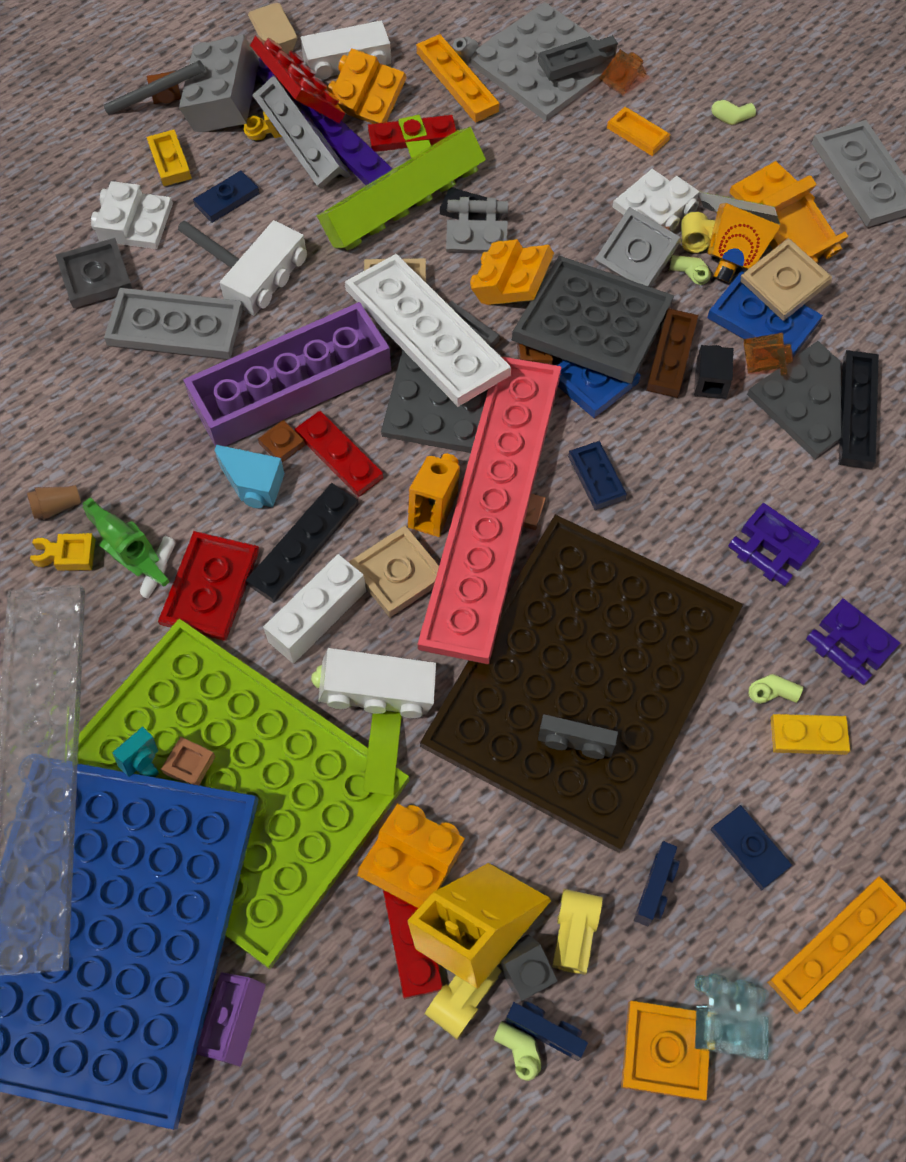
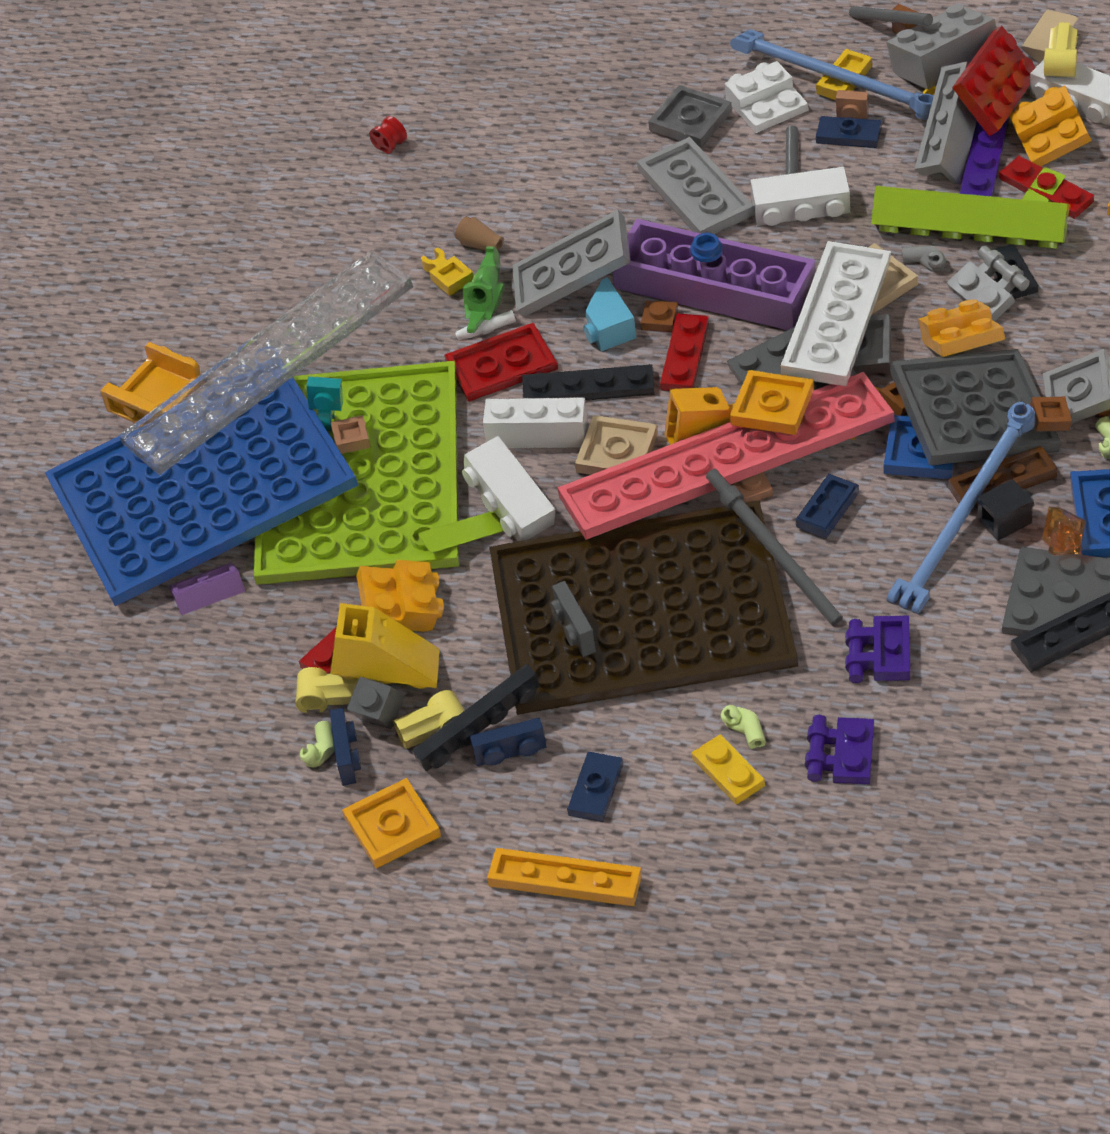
camera: 60 degrees right, 15 degrees down
(68, 182) = (754, 40): none -> medium blue hinge
(176, 458) = (571, 263): none -> light grey plate
(208, 173) = (852, 104): none -> nougat plate
(276, 357) = (706, 247): none -> blue plate
(321, 32) = (1061, 55): none -> light yellow piece
(405, 241) = (926, 255): none -> light grey arm
(482, 432) = (772, 402): none -> light orange plate
(553, 530) = (733, 499): none -> dark grey bar
(620, 908) = (488, 710): none -> black plate
(652, 280) = (1051, 413): none -> dark orange plate
(728, 482) = (914, 589): none -> medium blue hinge
(728, 1030) = (435, 843): clear light blue plate -> none

